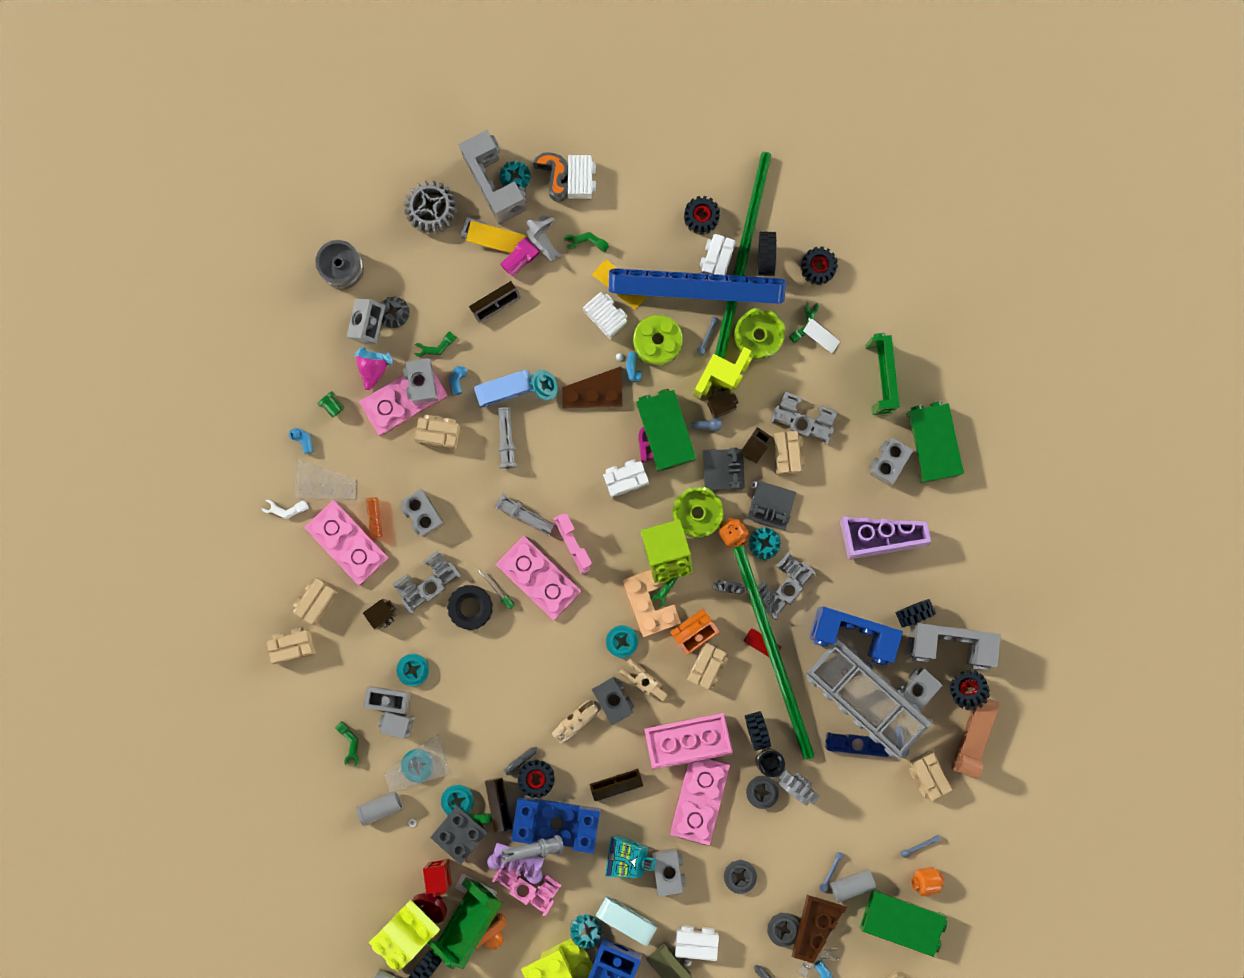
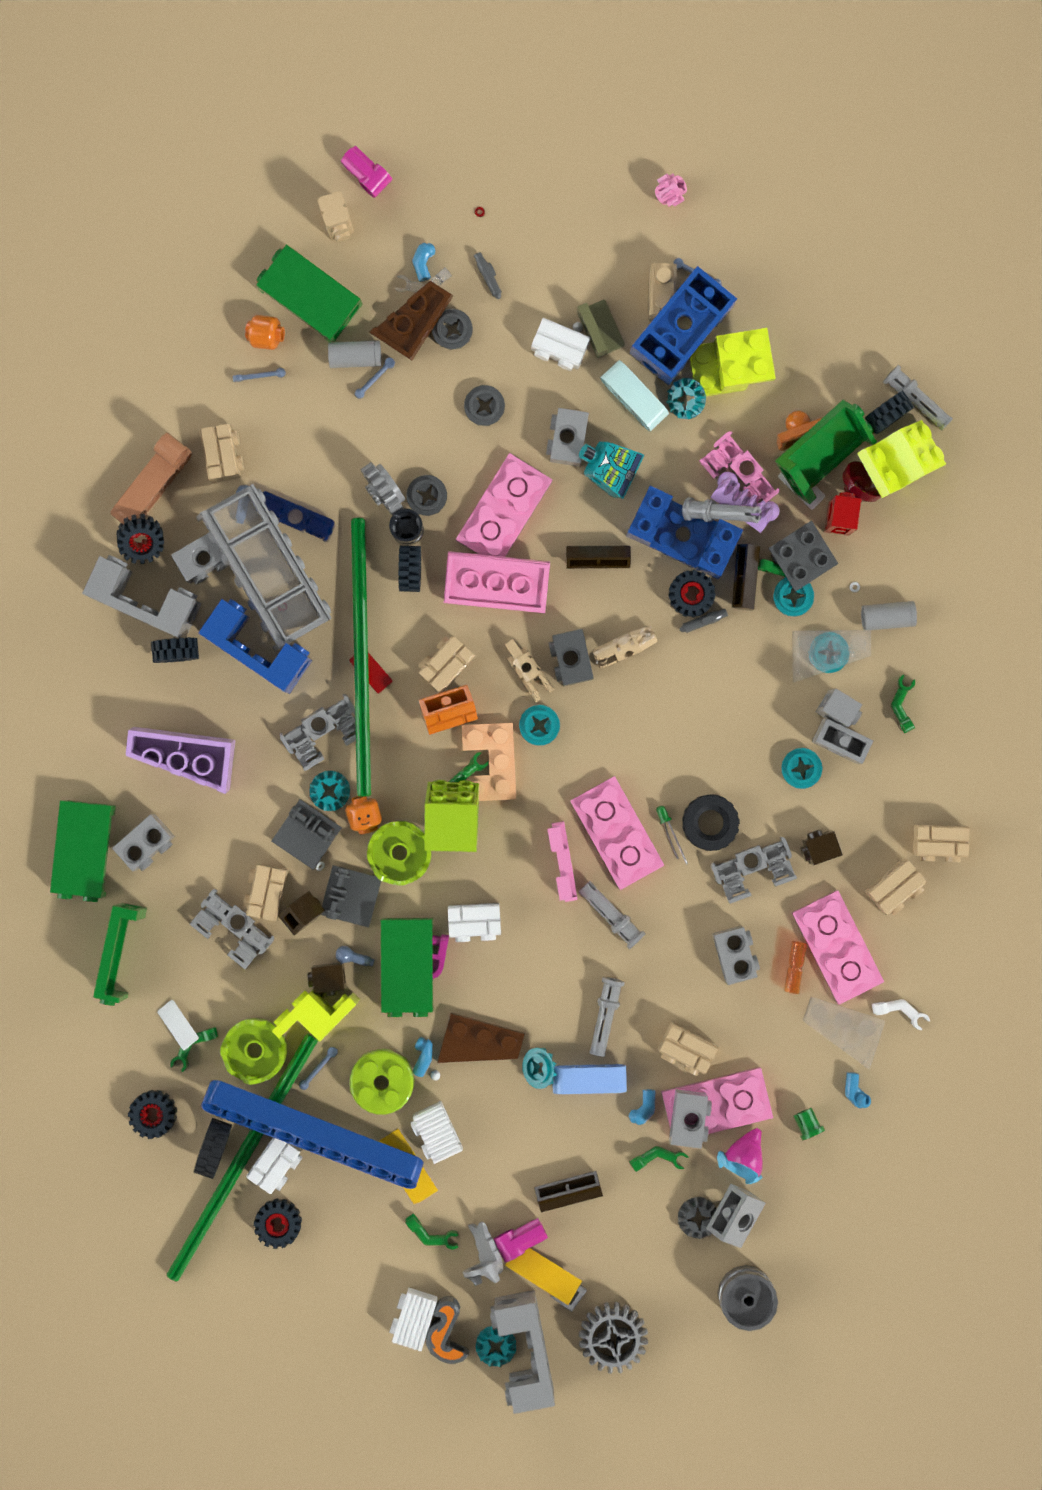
camera: 160 degrees left, 5 degrees up
(728, 586) = (389, 750): dark grey gear -> none

